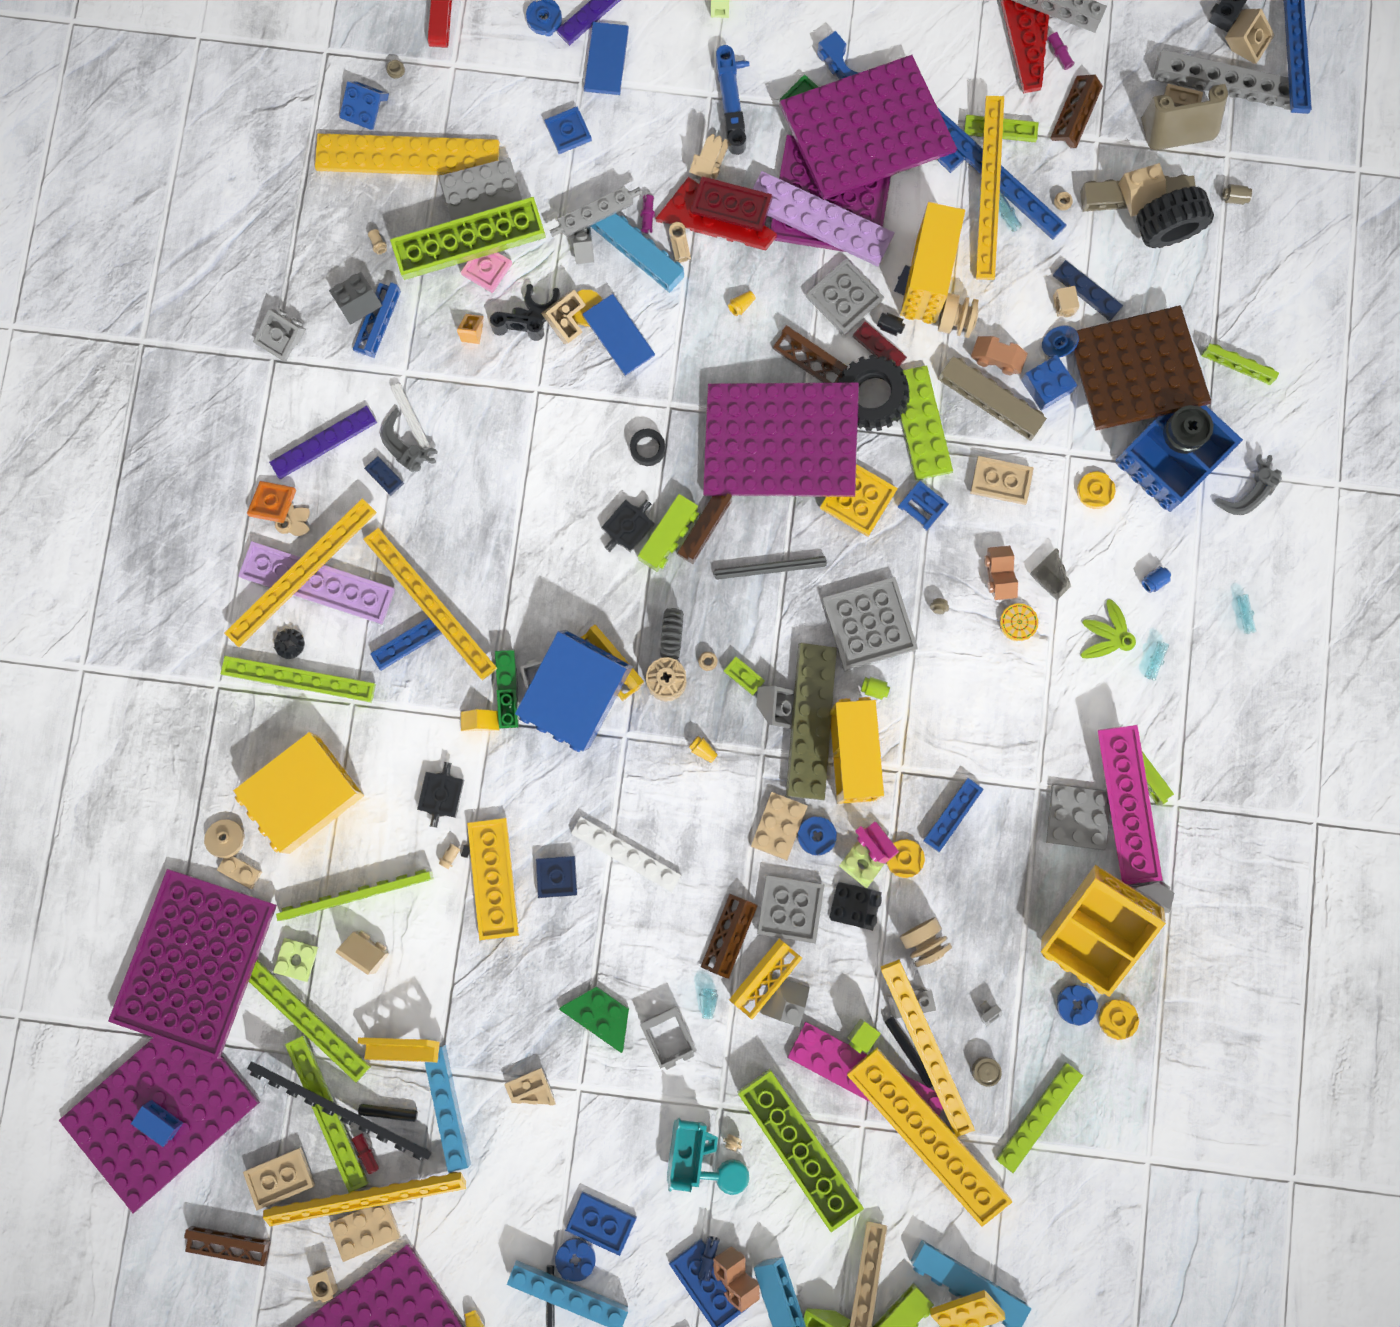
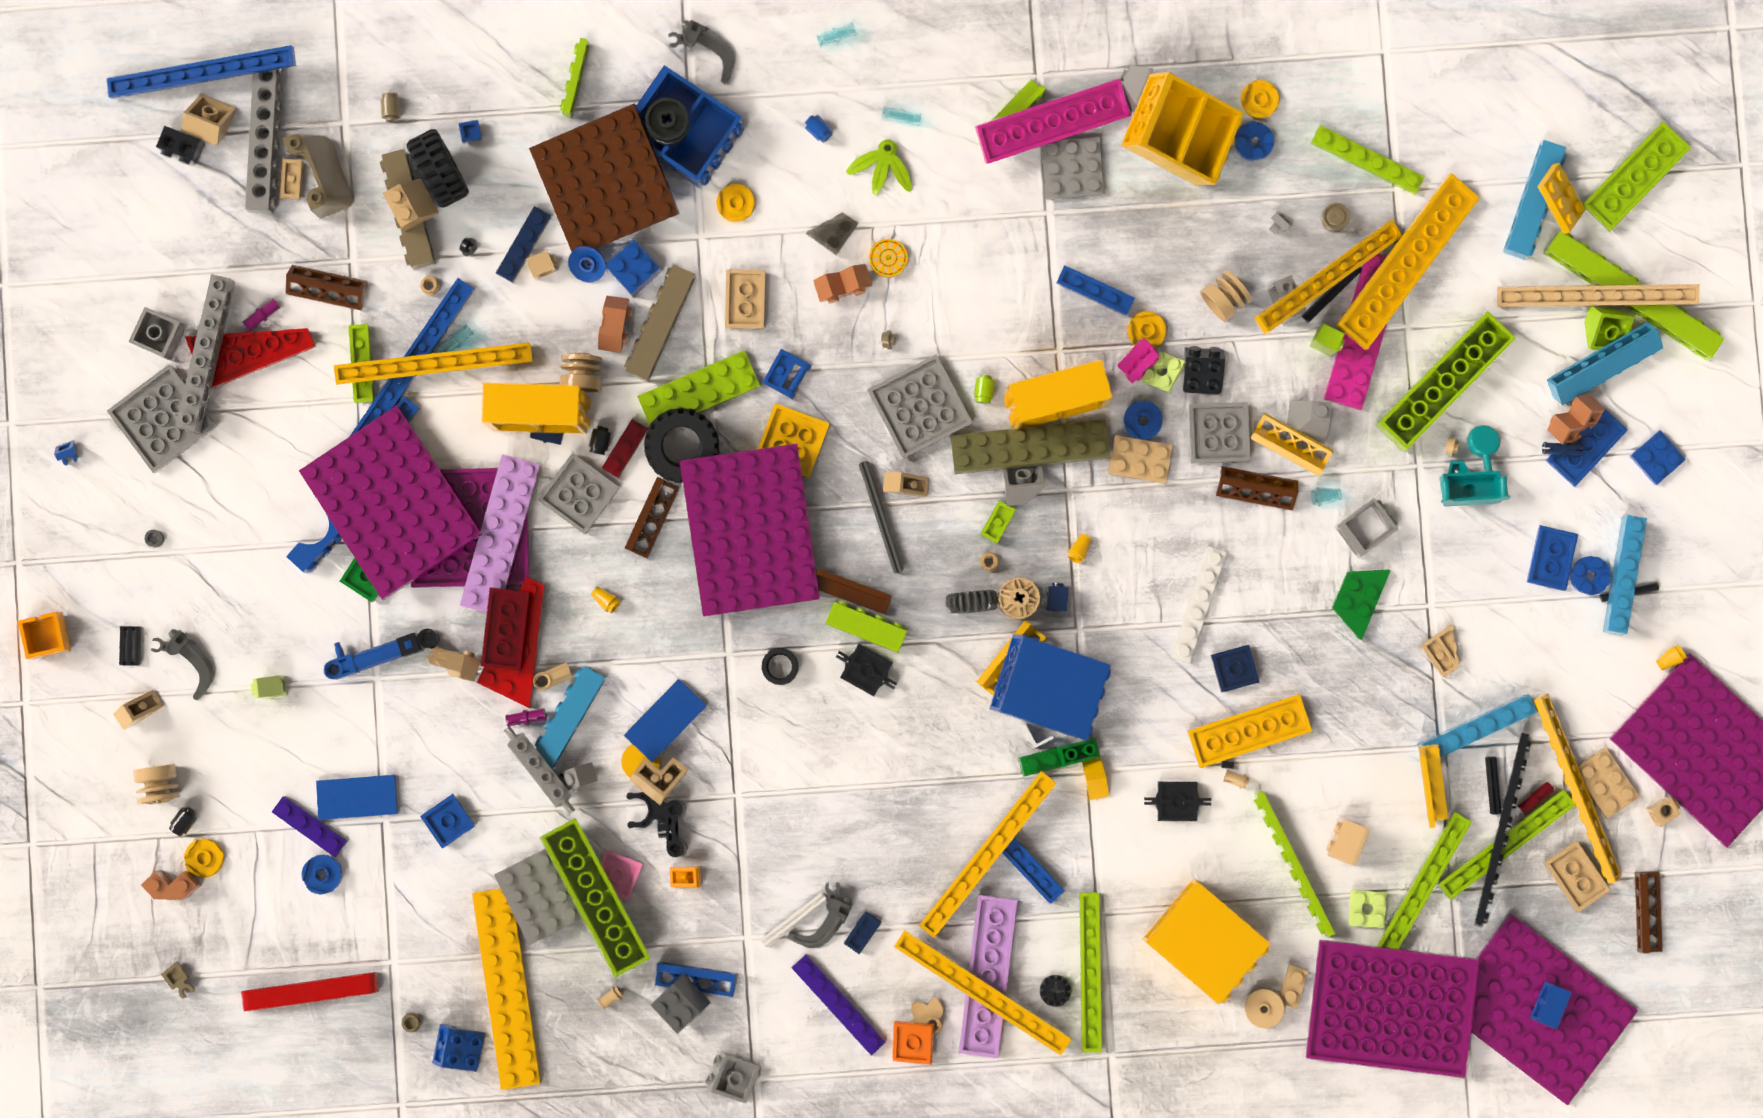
camera: 100 degrees left, 5 degrees up
(660, 718) = (1057, 597): none -> dark blue brick
(797, 596) = (905, 484): none -> tan slope
(1094, 239) = (468, 246): none -> black plate
(1203, 261) = (470, 131): none -> blue plate

